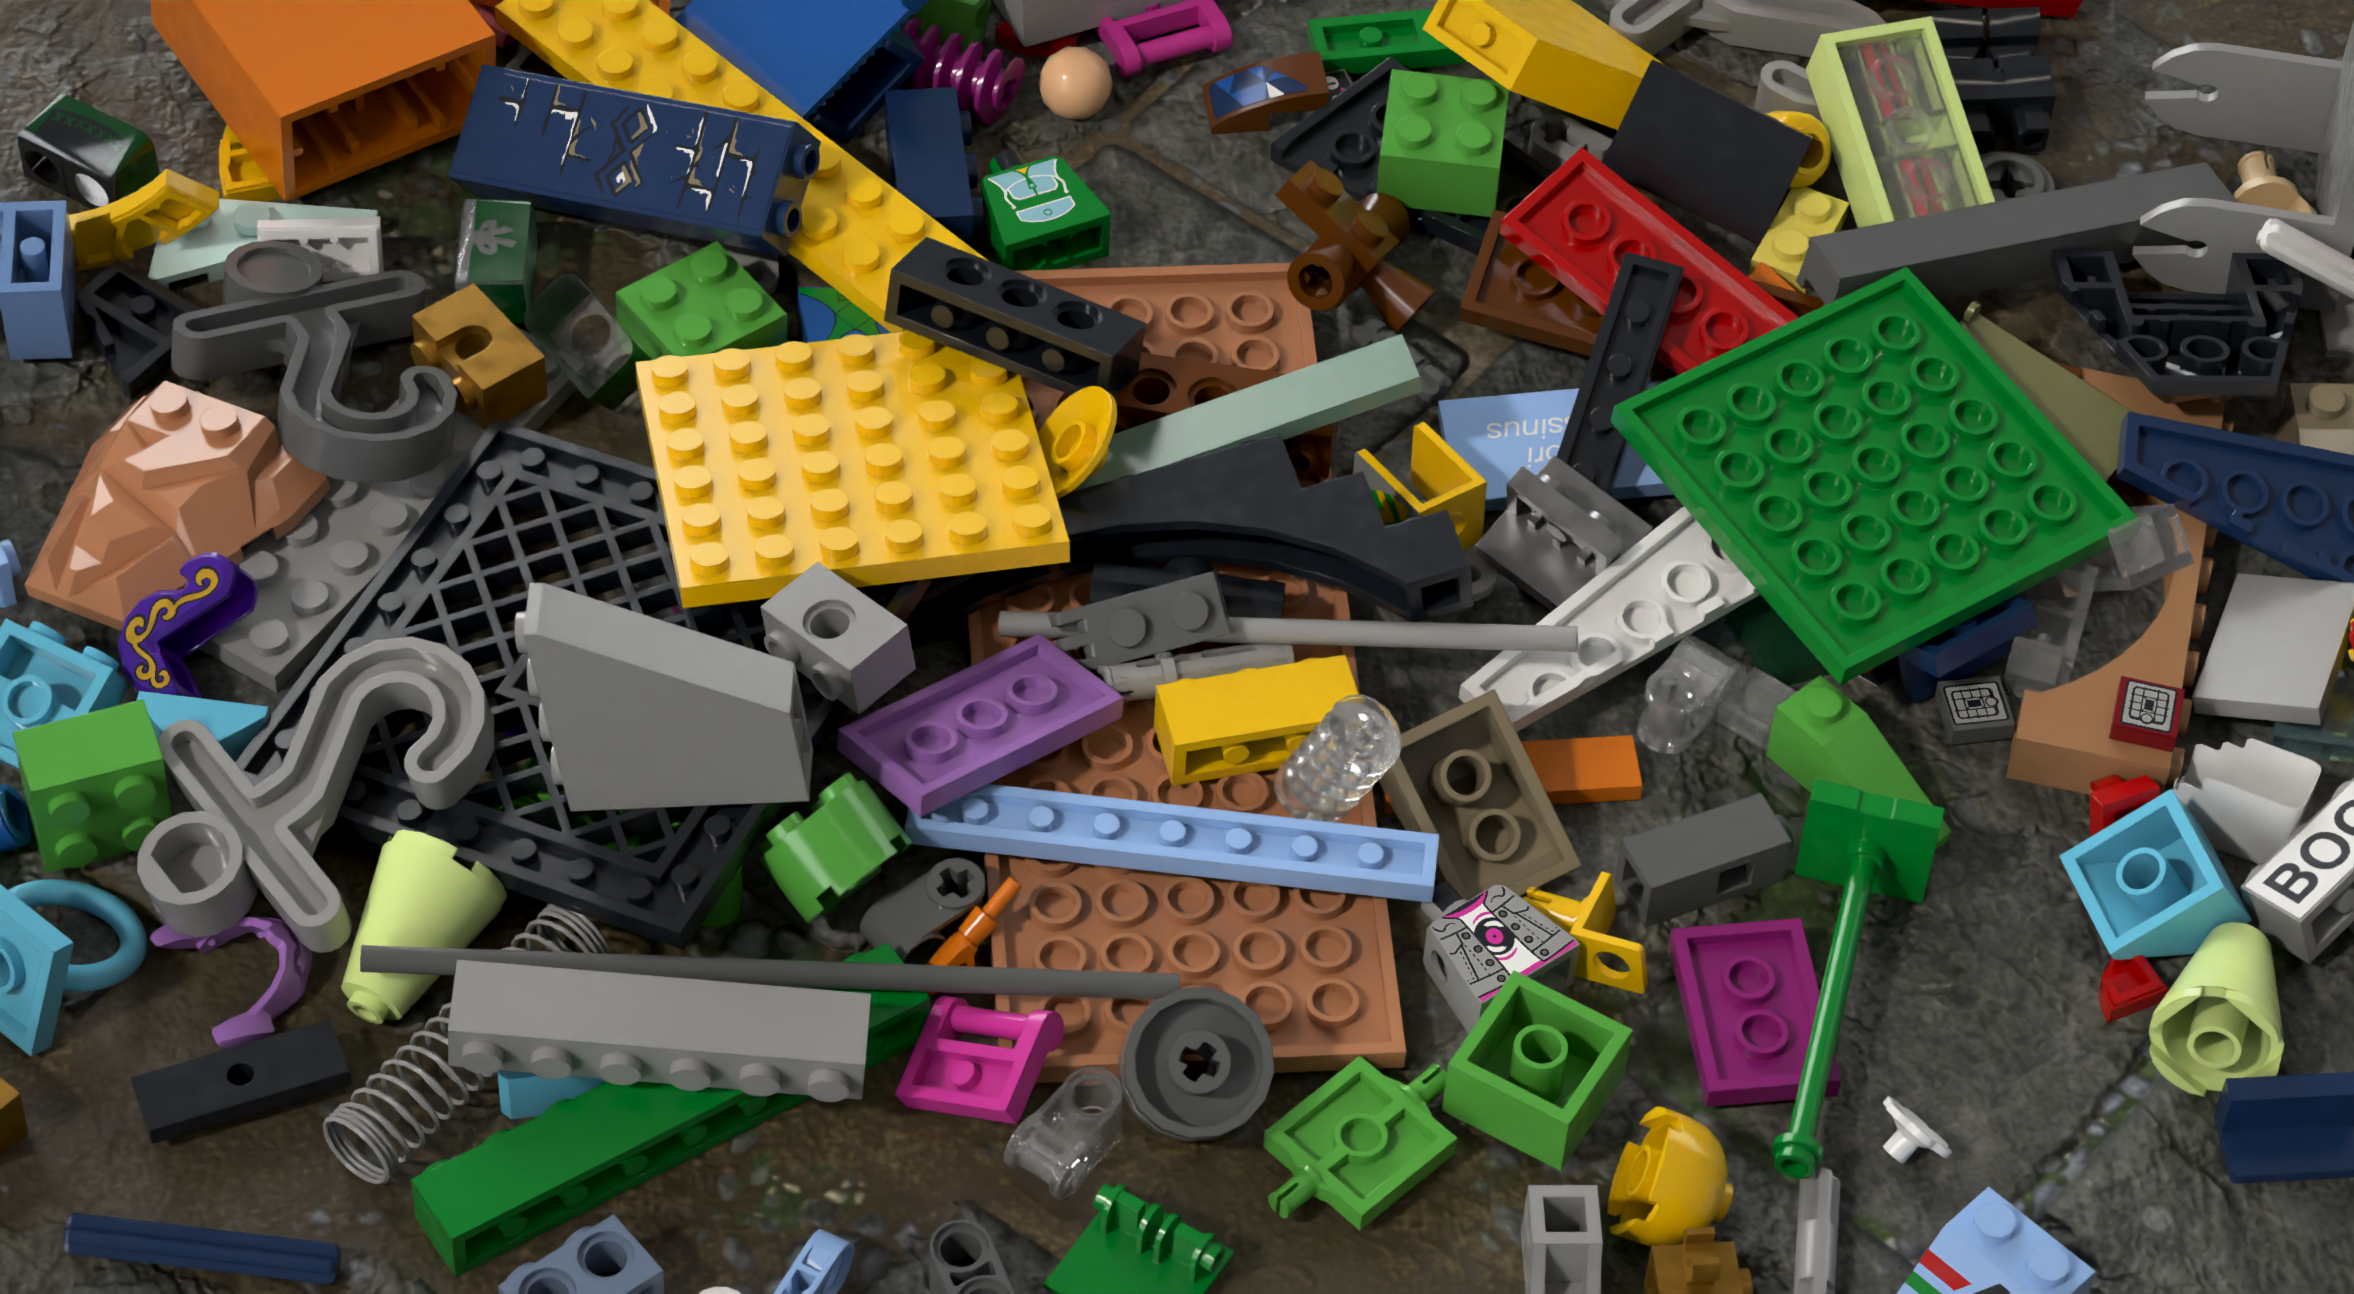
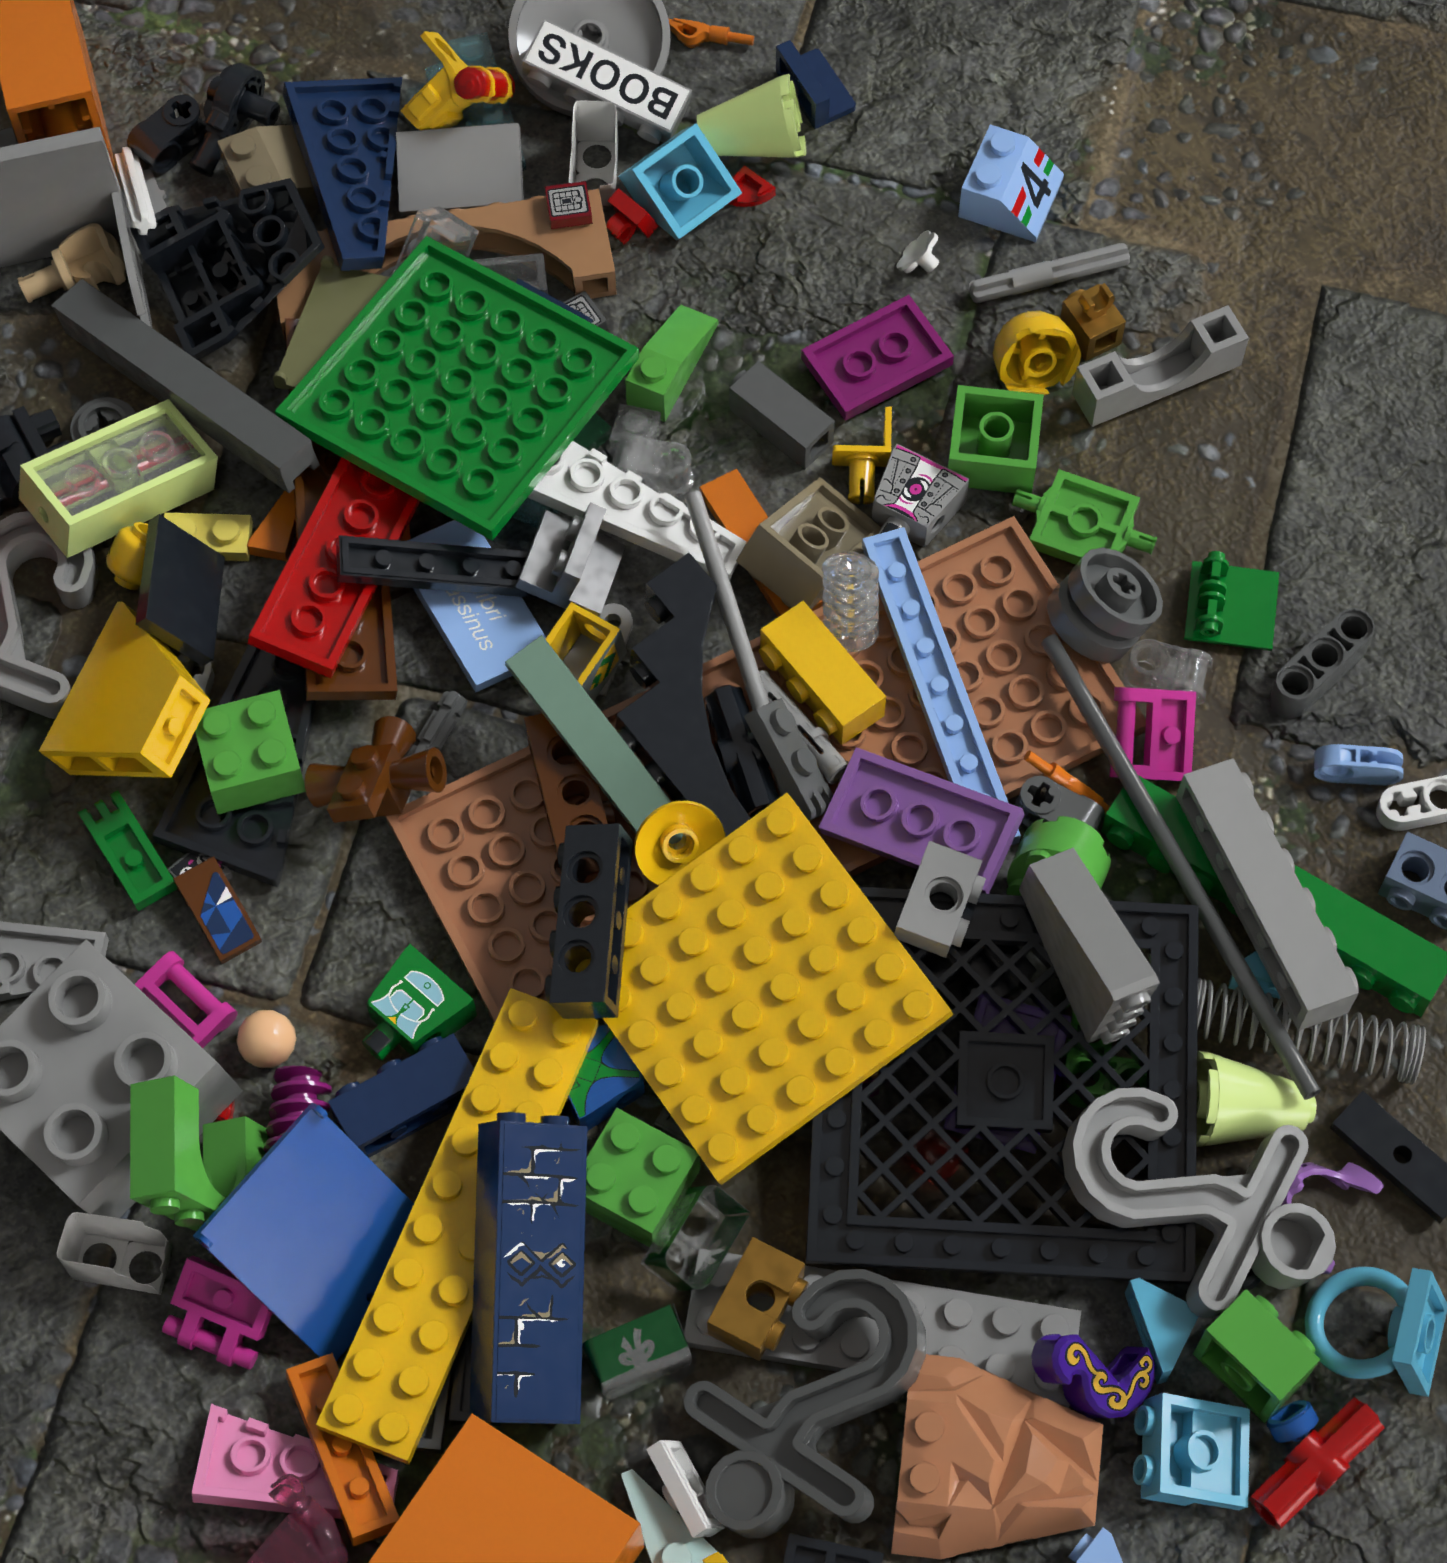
camera: 110 degrees left, 15 degrees up
(1868, 848) = (743, 321): green tile -> none

